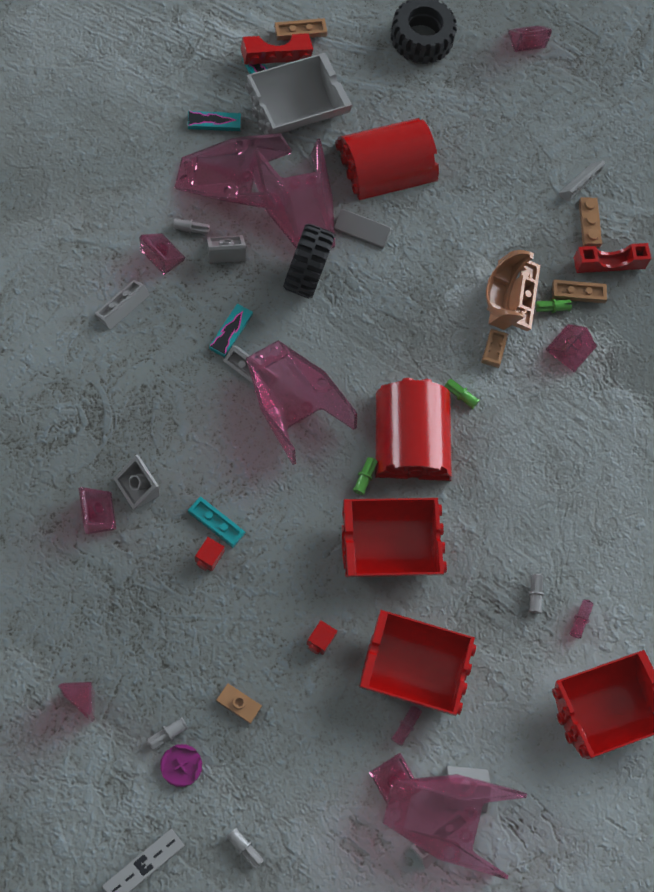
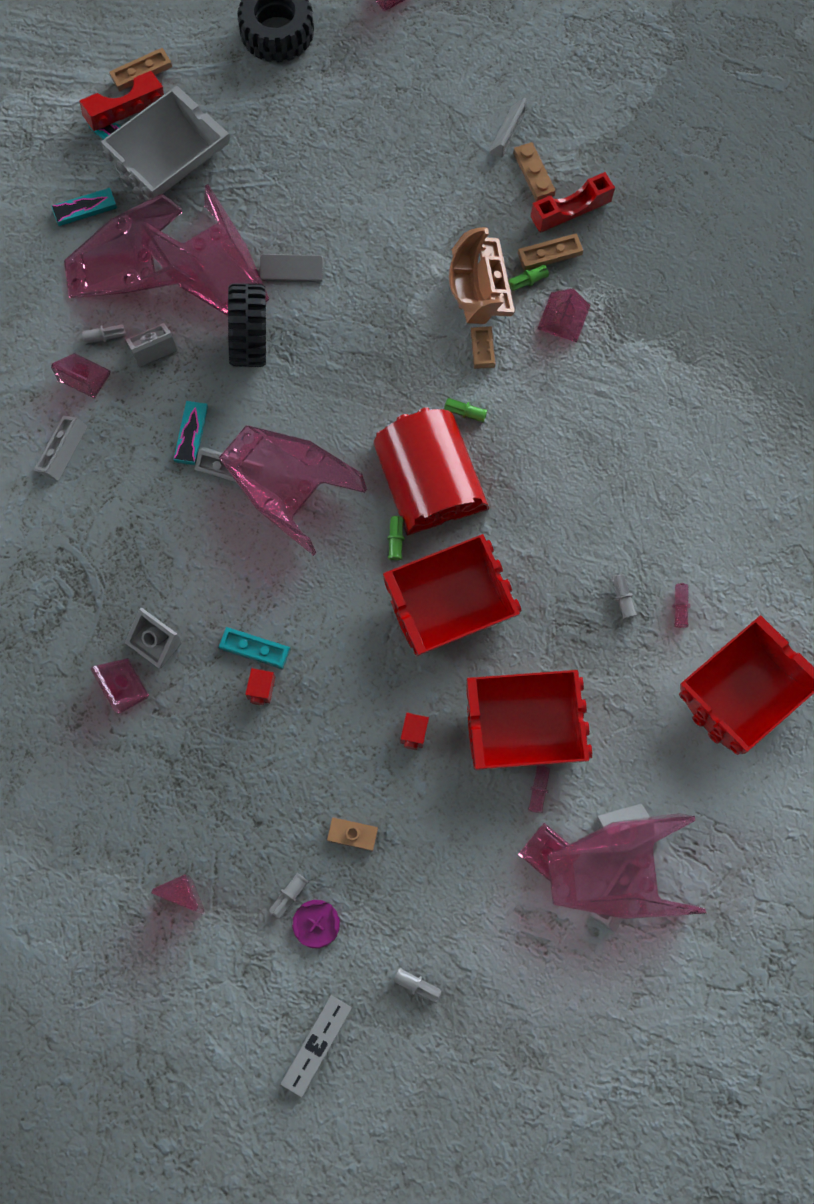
camera: 10 degrees left, 5 degrees up
(389, 158) = (291, 178): red cylinder -> none

